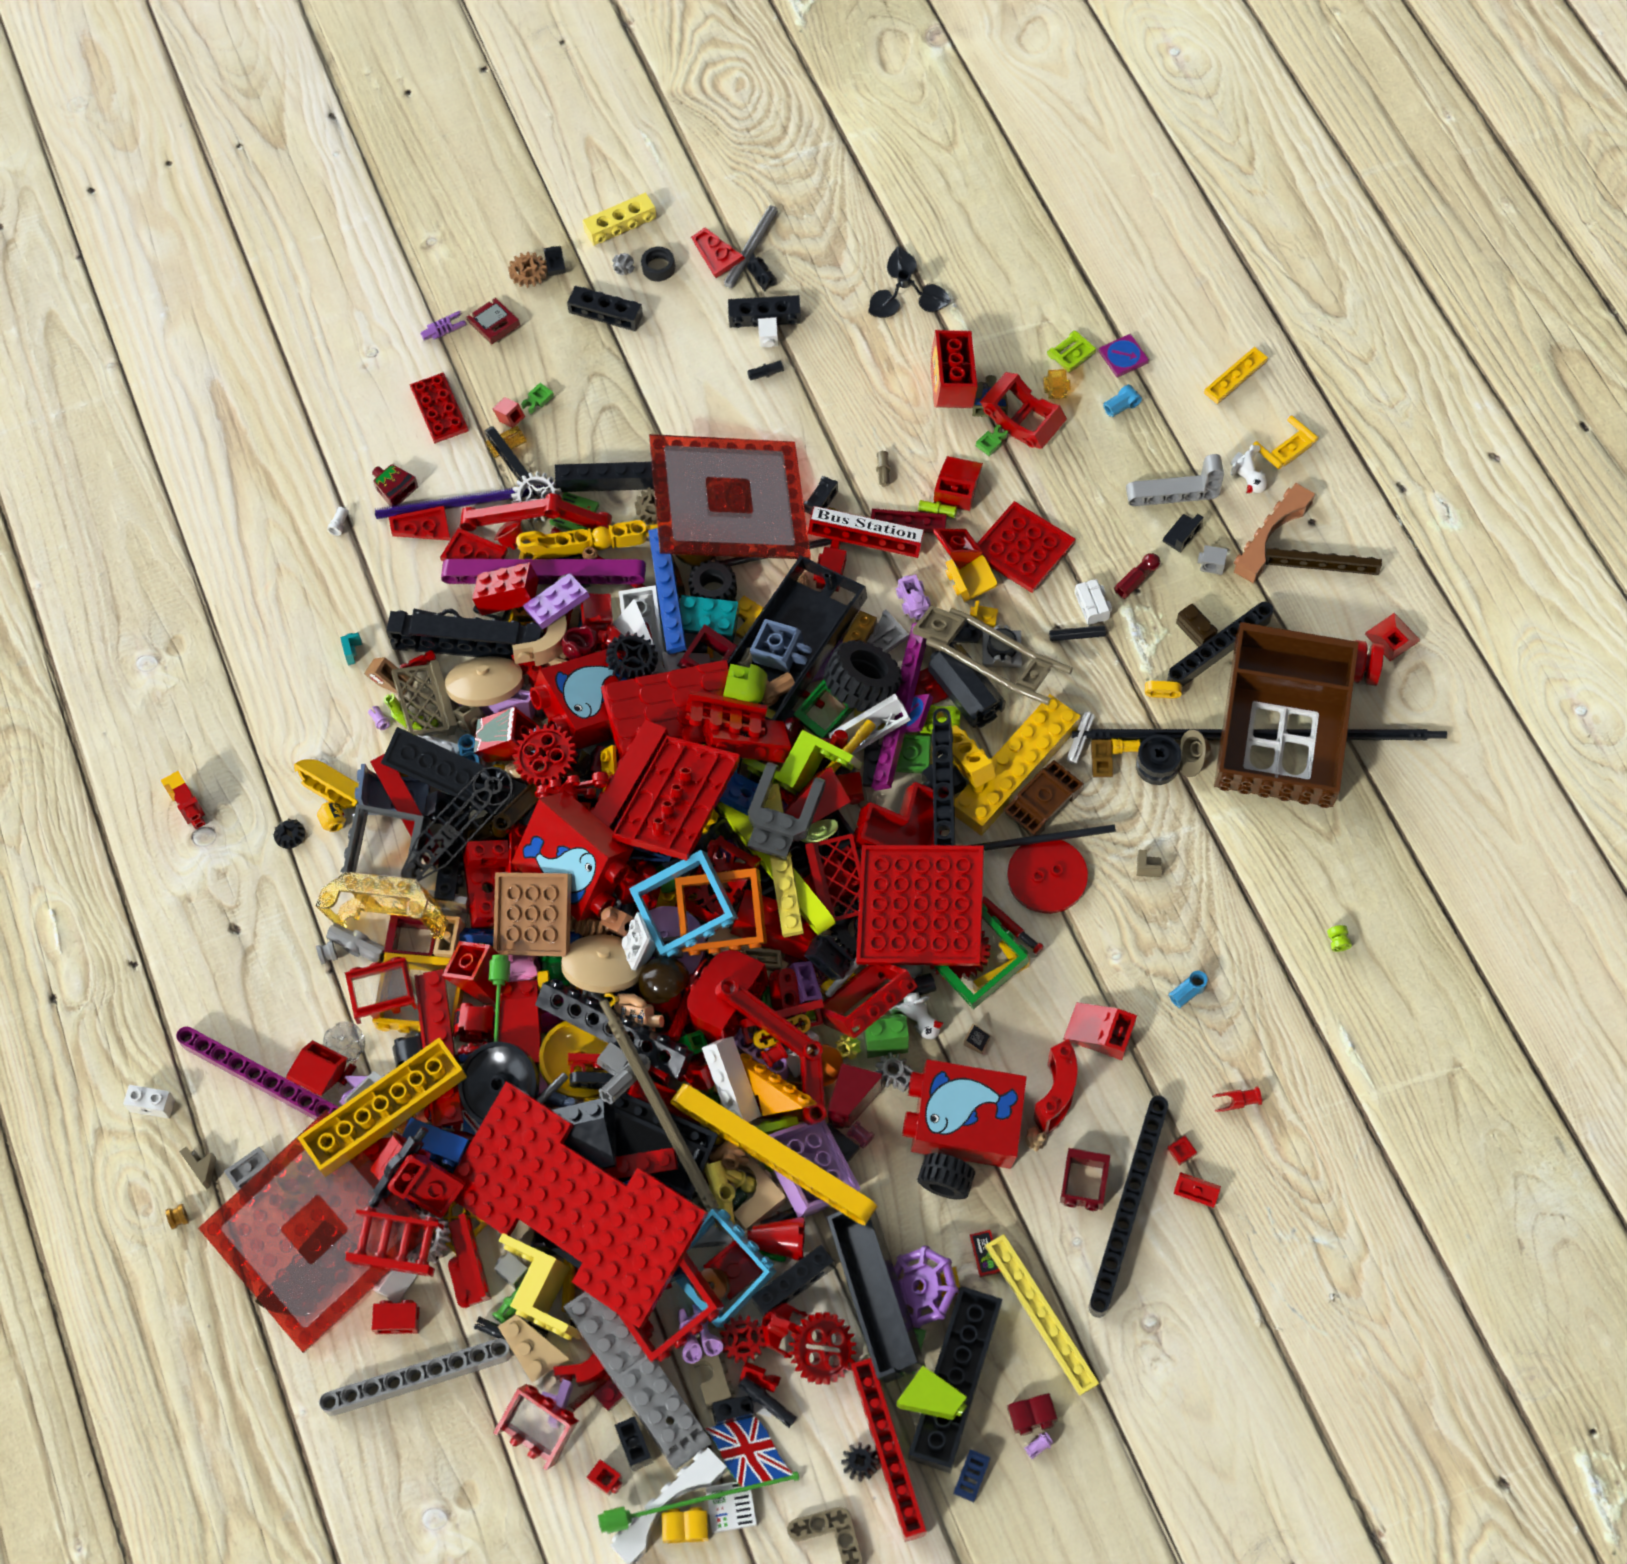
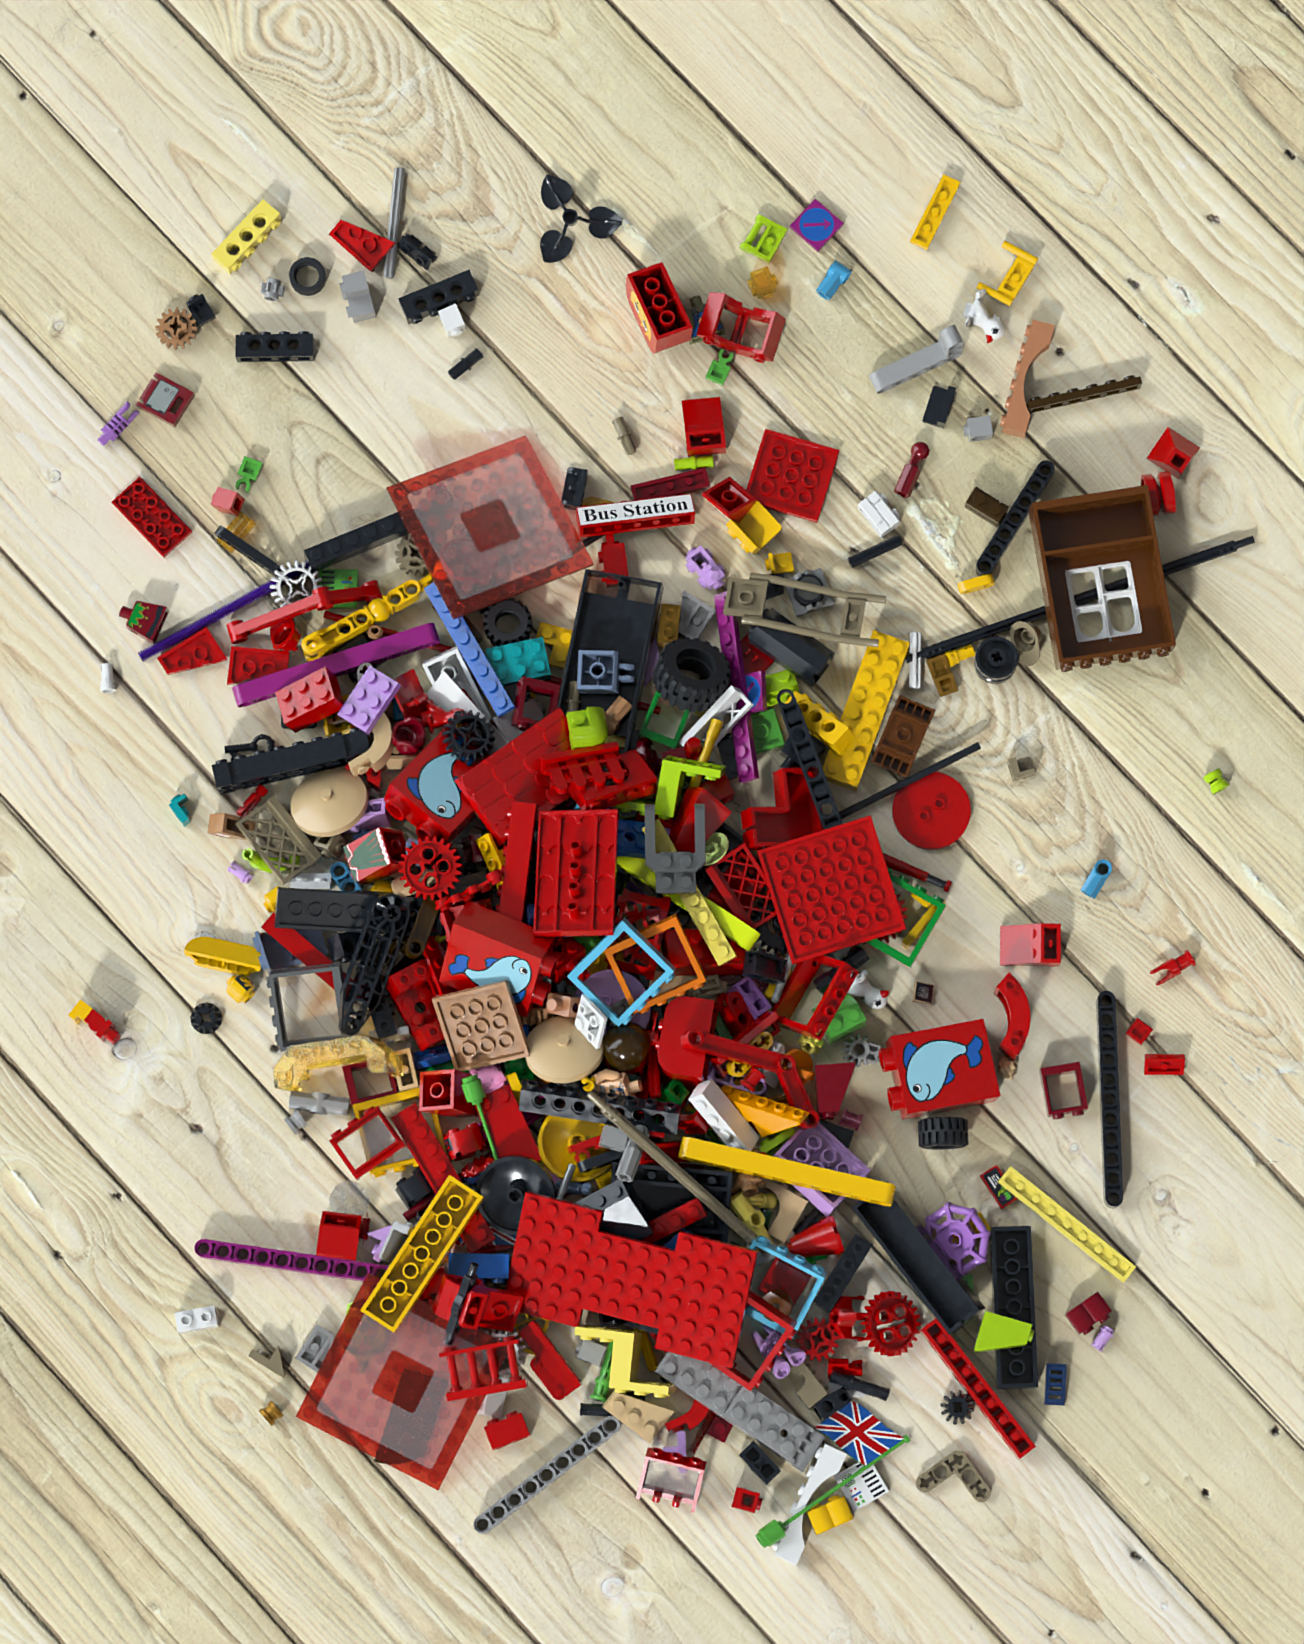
camera: 20 degrees left, 15 degrees up
(694, 287) = (356, 291): none -> light grey brick

